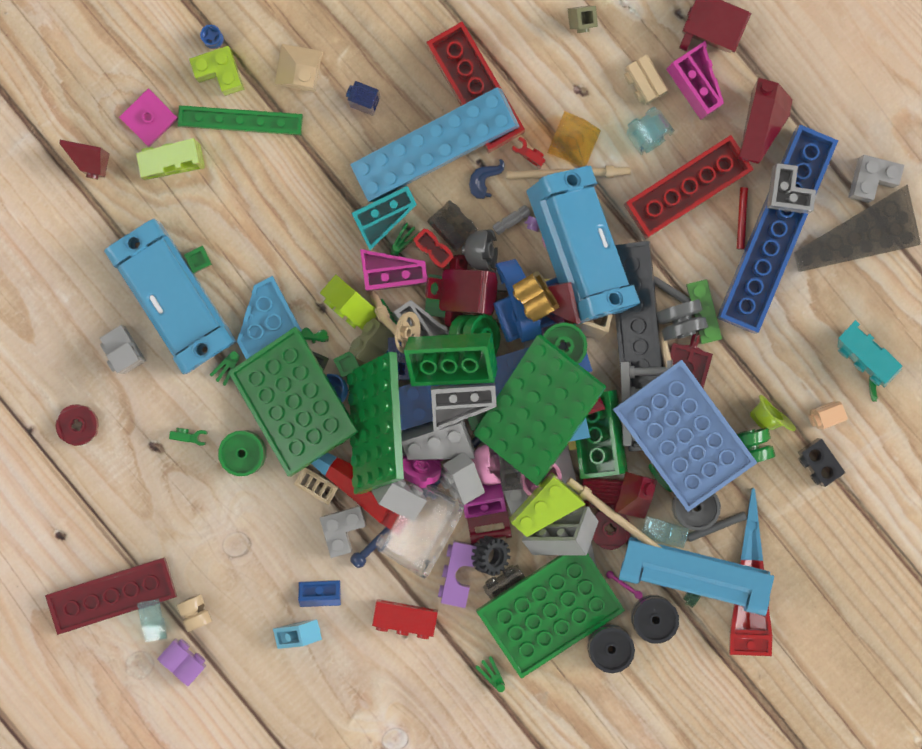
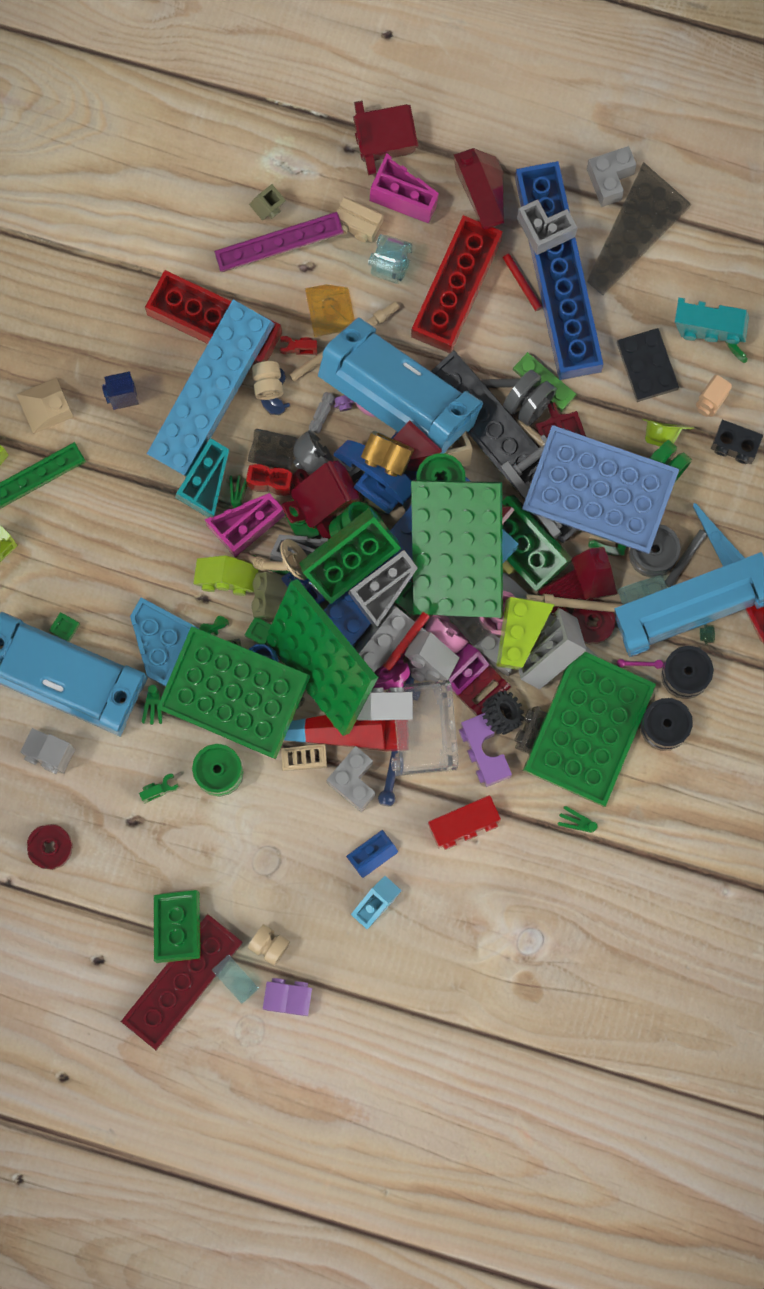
camera: 35 degrees left, 10 degrees down
(133, 552) = (177, 926): none -> green plate
(451, 454) = (405, 642): none -> red bar
(485, 165) = (267, 381): none -> tan wheel
(570, 57) = (279, 242): none -> magenta tile
(794, 352) = (647, 365): none -> black plate

